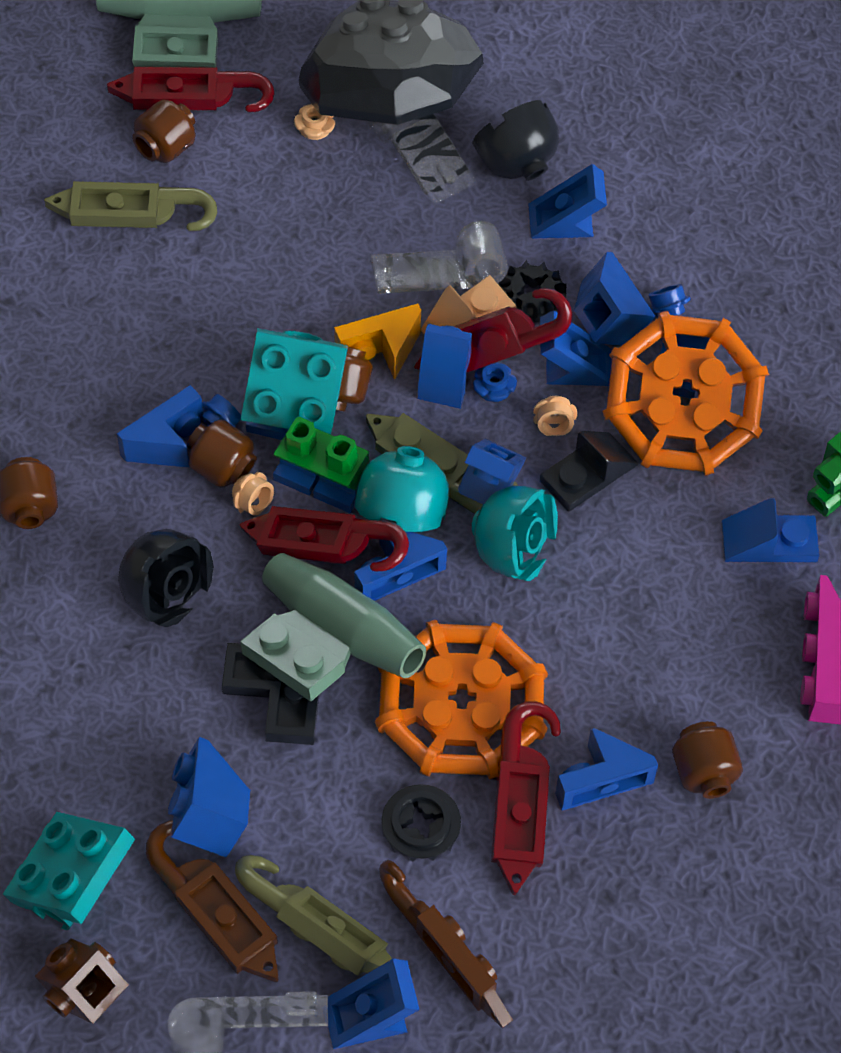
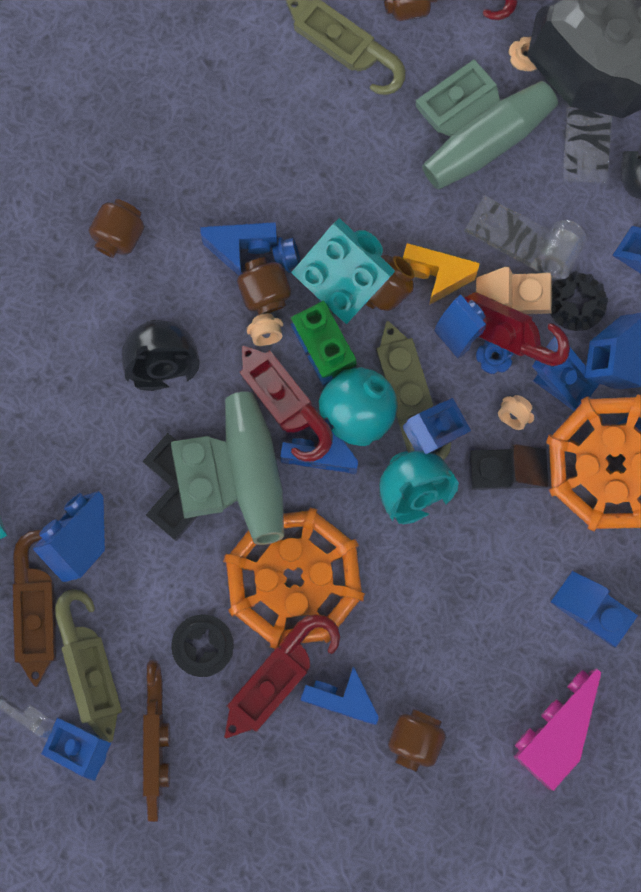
camera: 40 degrees right, 20 degrees up
(316, 197) = (478, 121): none -> sand green plate

